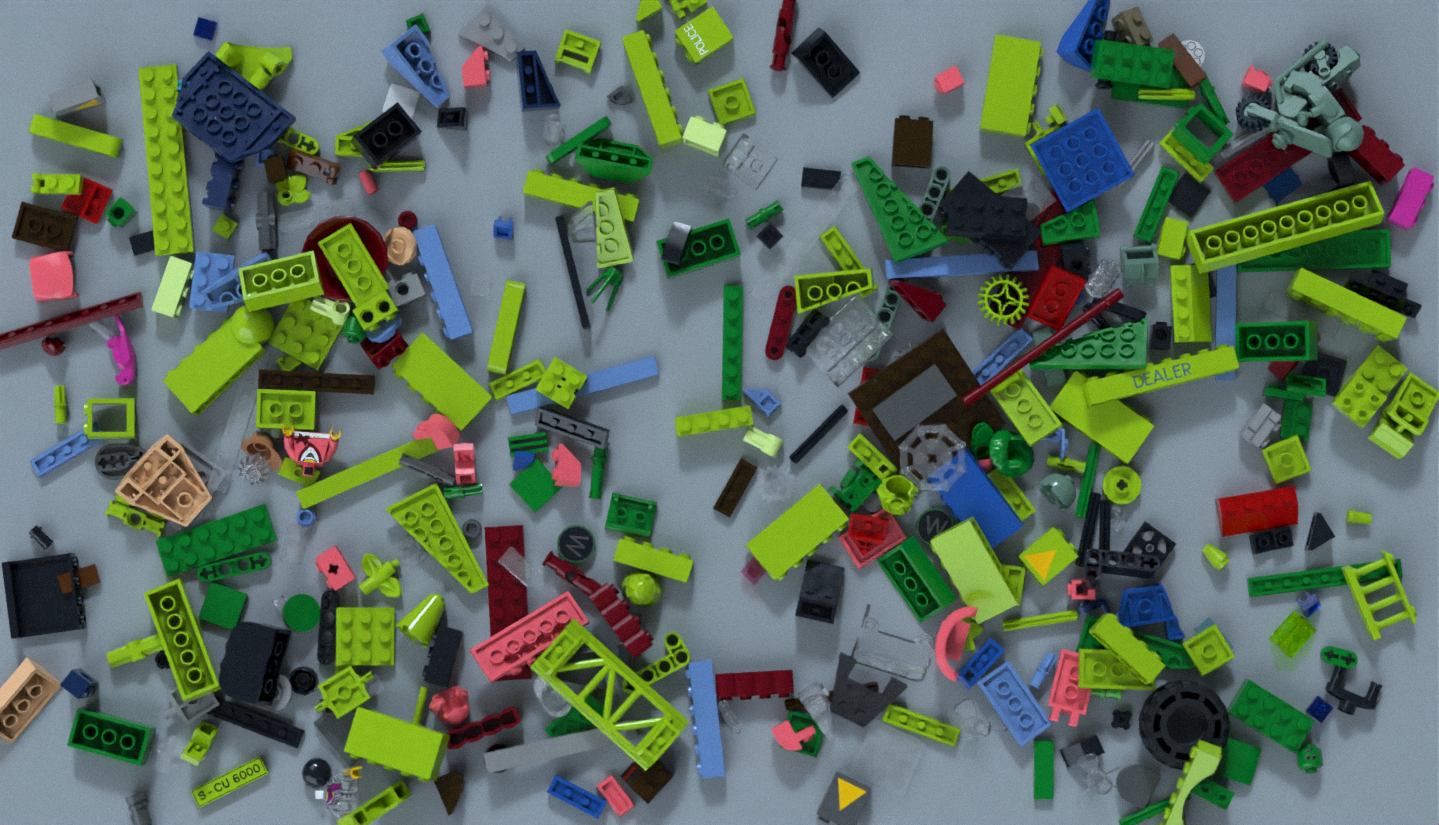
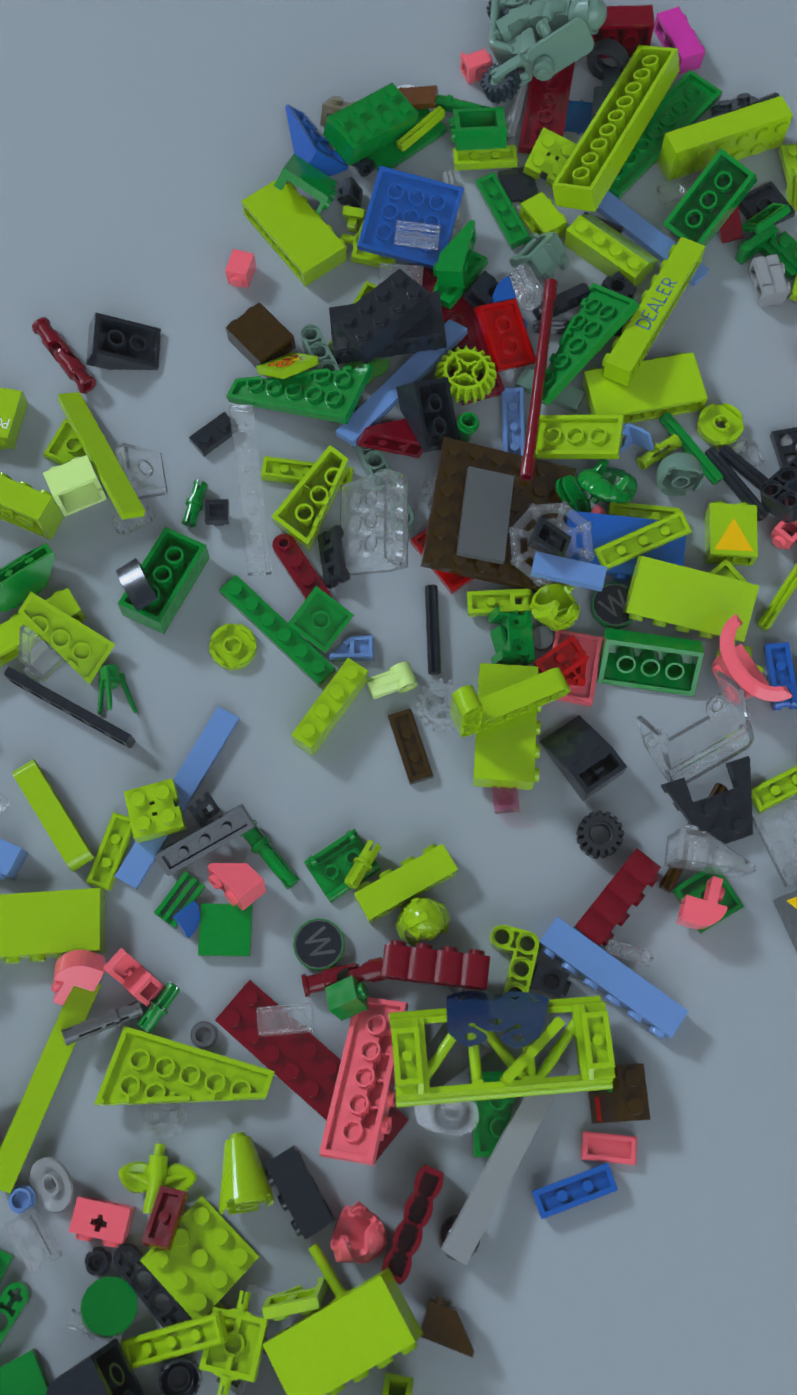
camera: 50 degrees left, 15 degrees down
(310, 585) = (90, 1261): none -> black plate
(318, 661) = (175, 1340): none -> lime tile
(327, 525) = (51, 1184): none -> light grey dish
(367, 600) = (164, 1218): none -> dark red plate
(391, 703) = (295, 1301): none -> lime wing
(561, 587) = (347, 998): none -> green brick
(587, 411) = (202, 807): none -> black tile
(617, 711) = (532, 1050): none -> lime tile
(633, 682) = (511, 1012): none -> dark blue piece
(640, 527) = (362, 864): none -> lime axle
(675, 678) = (538, 984): none -> black brick
(698, 327) = (233, 646): none -> lime tile
(737, 132) = (101, 456): none -> lime tile
(760, 365) = (320, 619): none -> green plate
(783, 630) = (607, 821): none -> black tyre
(808, 524) = (477, 714): none -> lime beam
(905, 183) = (287, 365): none -> lime tile
(921, 485) = (568, 571): none -> medium blue tile
(929, 457) = (549, 538): none -> black slope
(953, 304) = (429, 411): none -> black slope
(974, 332) = (467, 425): none -> green cone
(985, 510) = (643, 540): none -> lime tile
(1048, 65) = (309, 180): none -> green panel
(1063, 164) = (415, 238): none -> clear tile
(1073, 96) = (351, 193): none -> black tile
(1076, 219) = (456, 258): none -> green slope
(1083, 270) = (504, 290): none -> blue tile
(1230, 202) = (548, 156): none -> lime piece

